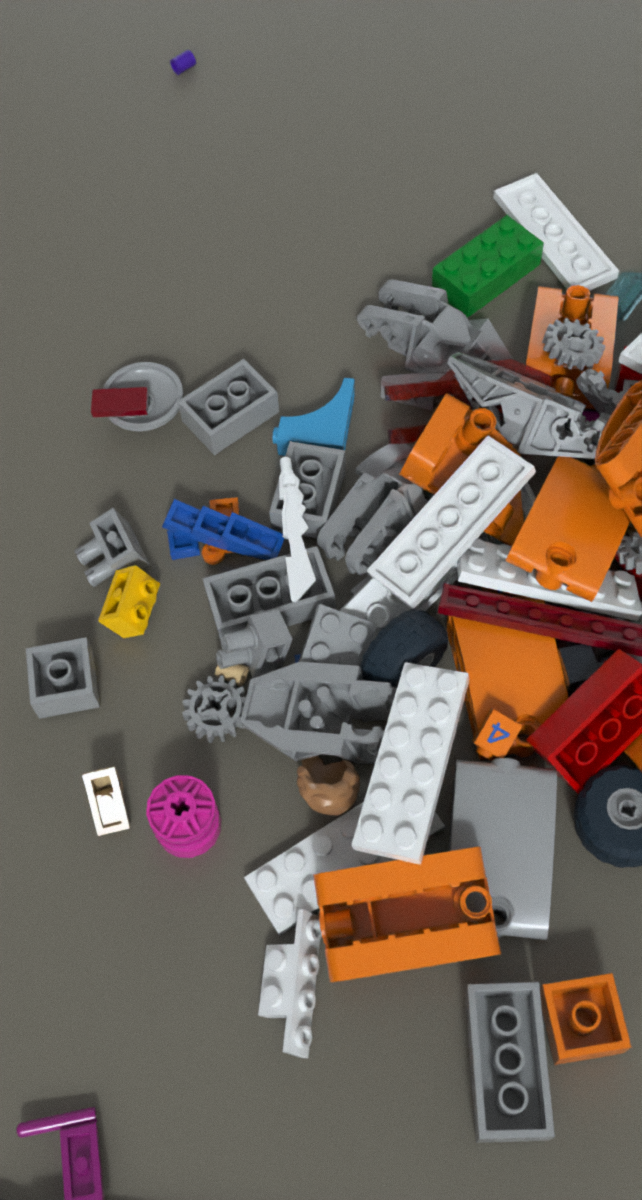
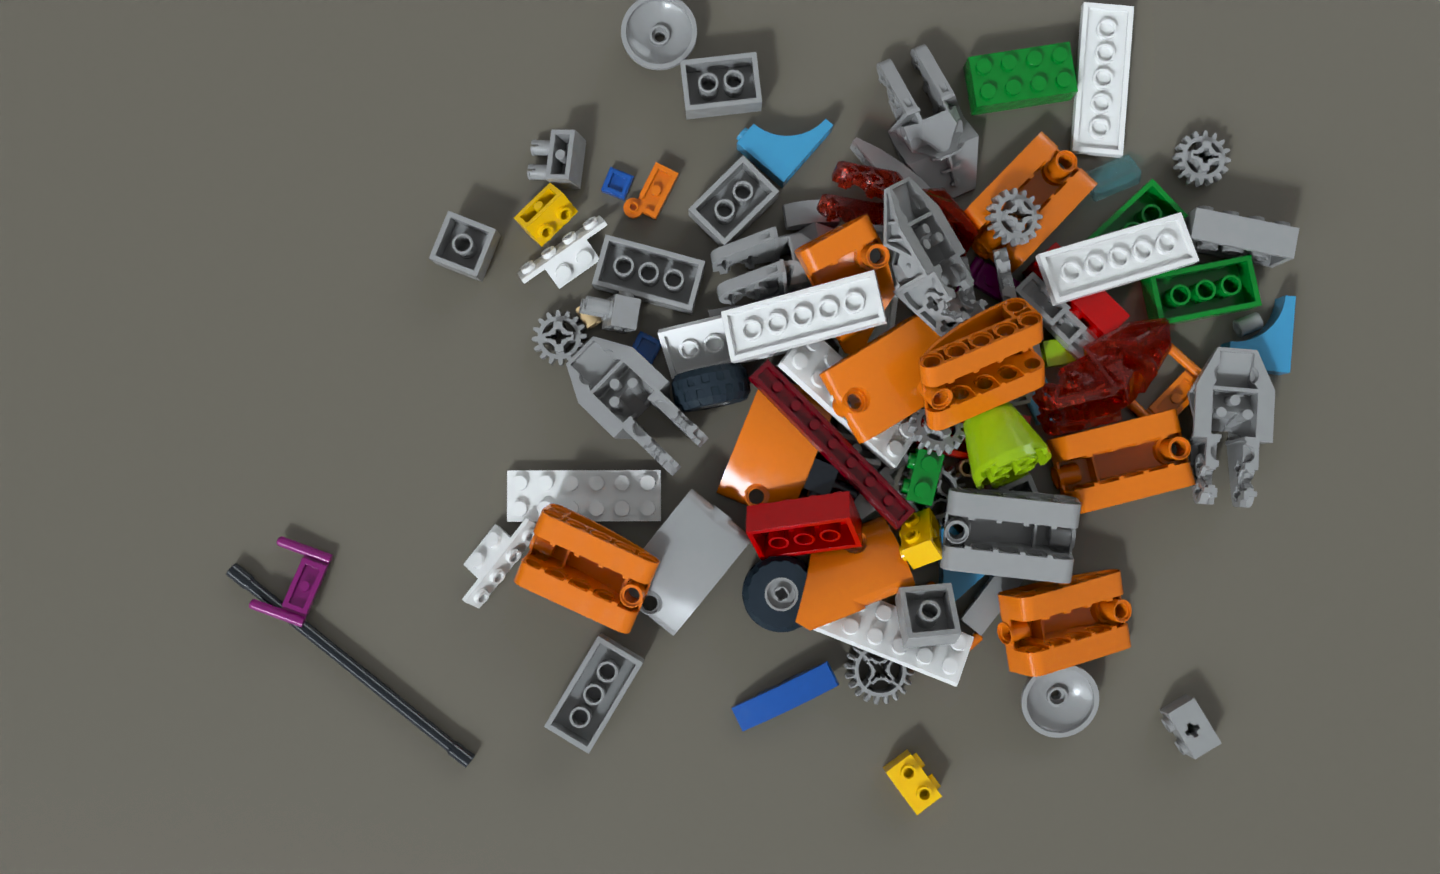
camera: 30 degrees right, 25 degrees up
(106, 800) = (445, 360): slope -> none
(119, 402) = (636, 29): dark red tile -> none
(176, 633) = (567, 258): none -> white bracket
(192, 831) = (504, 406): dark pink wheel -> none
(224, 532) = (648, 199): blue slope -> none
(298, 565) = (697, 235): white sword -> none
(328, 787) = (597, 448): medium nougat hair -> none
(337, 638) = (670, 347): light grey plate -> none
(411, 763) = (652, 478): white plate -> none
(496, 735) = (730, 488): orange brick -> none
(584, 1019) = (658, 698): orange brick -> none

